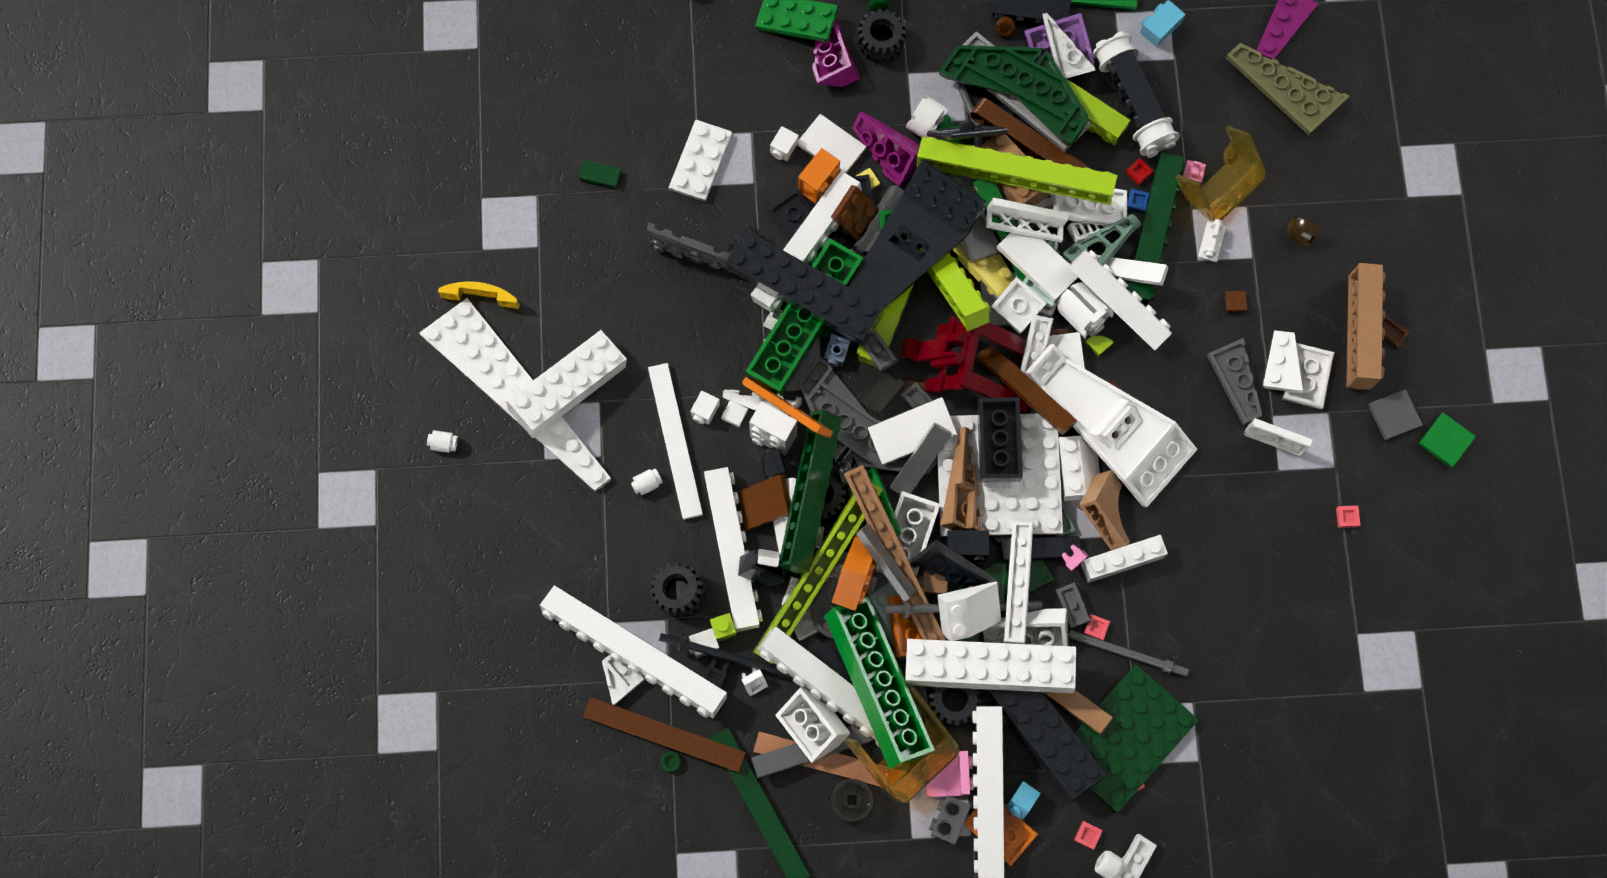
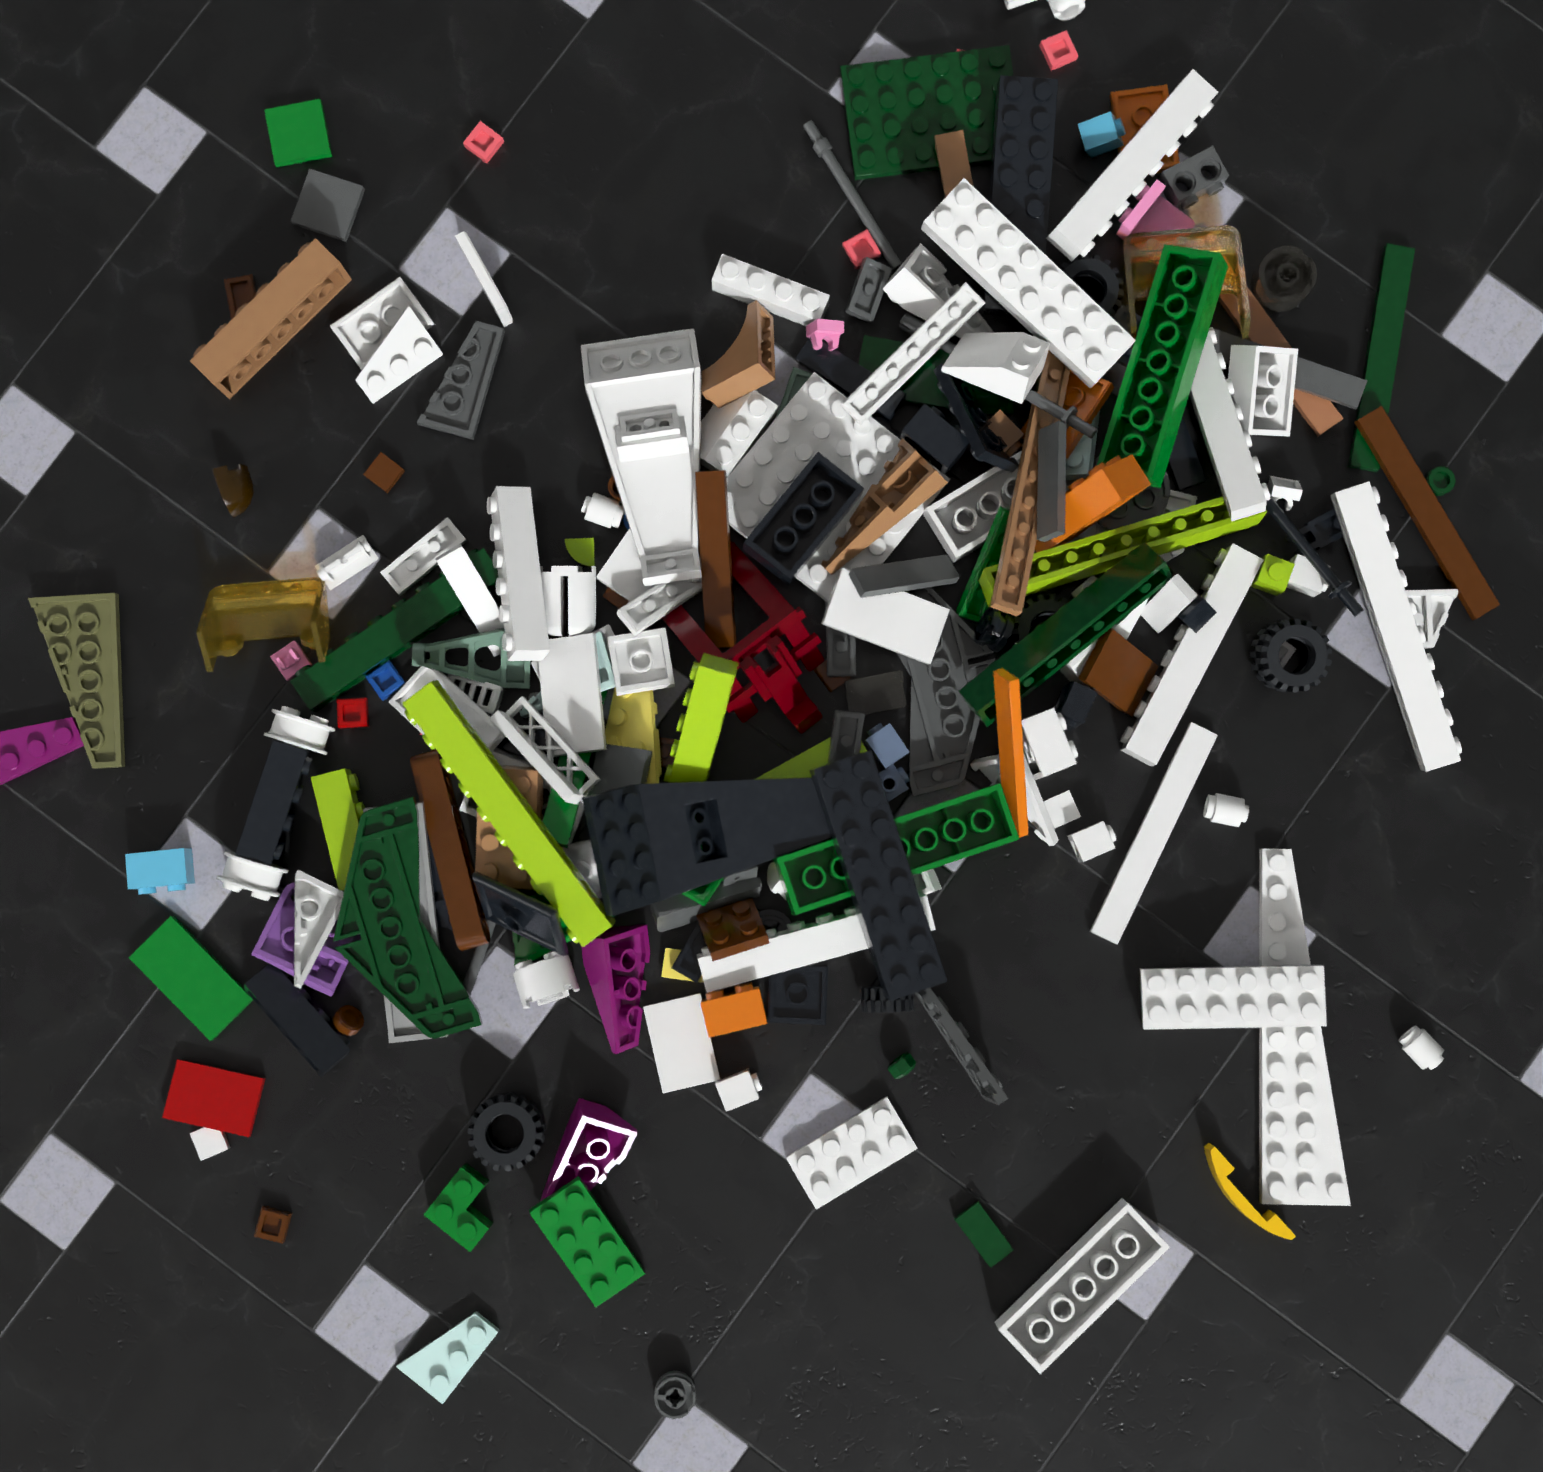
camera: 140 degrees left, 10 degrees up
(530, 185) = (1081, 1285): none -> white brick
(710, 219) = (902, 1065): none -> dark green tile
(854, 370) = (885, 745): none -> sand blue brick
(1108, 370) = (603, 510): none -> white brick
(1176, 275) = (420, 558): none -> white plate

